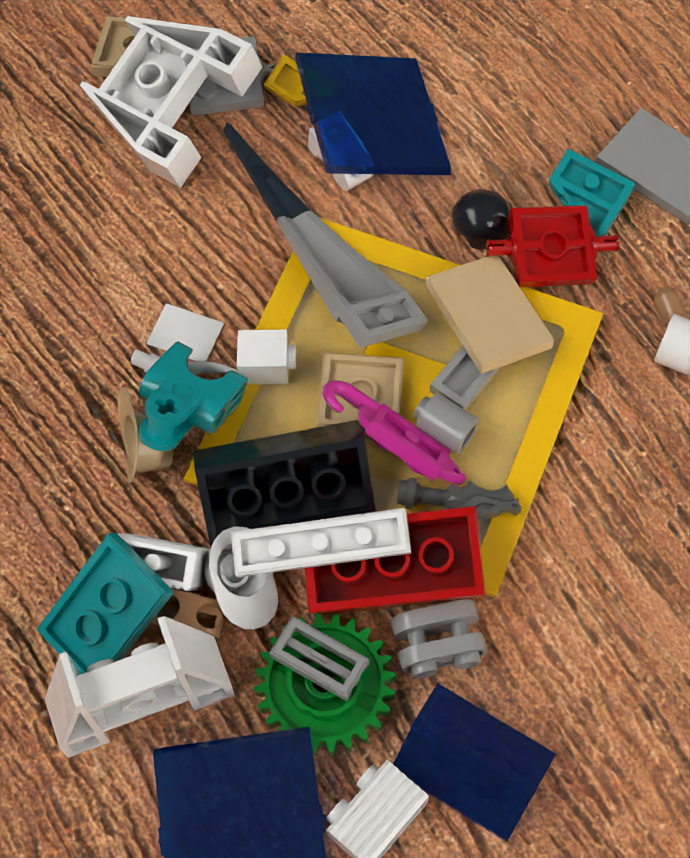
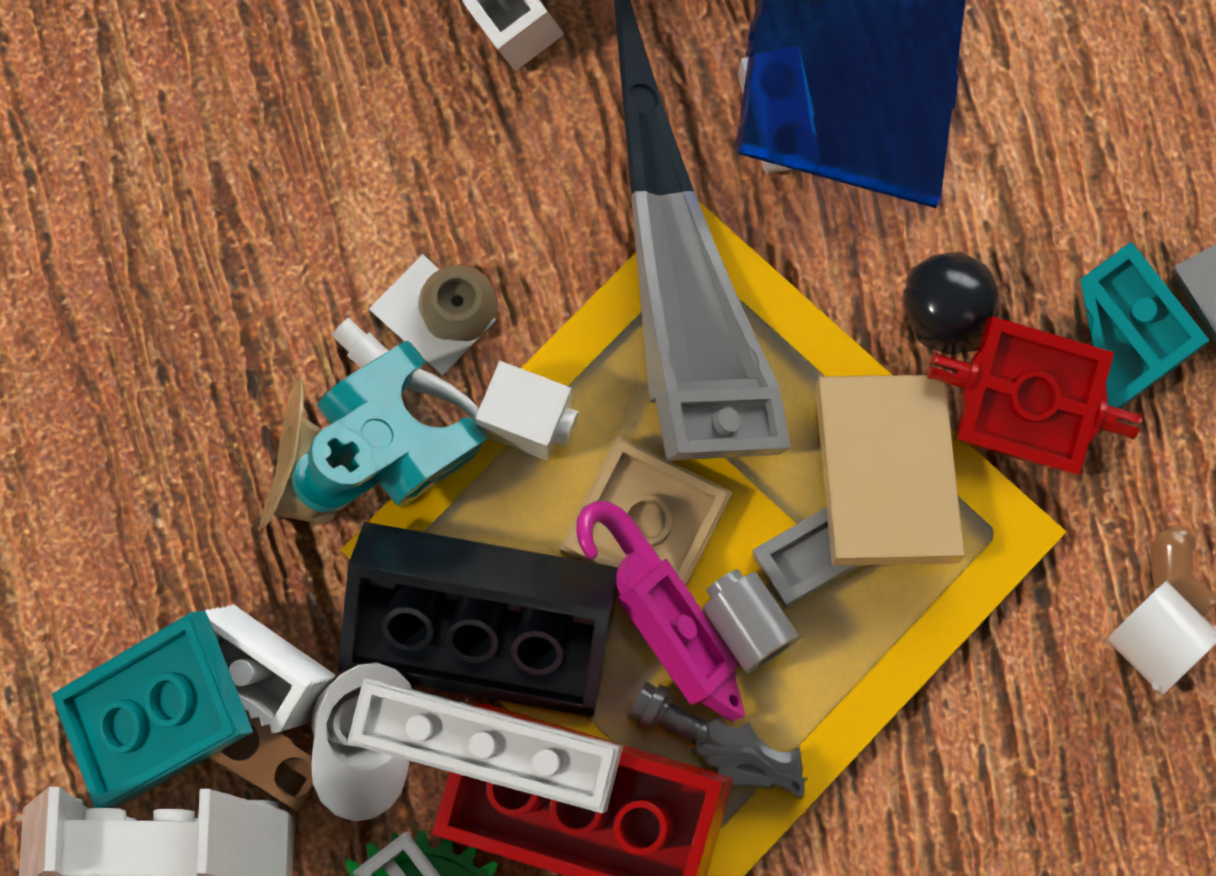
camera: 20 degrees right, 10 degrees up
(201, 329) = (460, 322): none -> dark tan plate

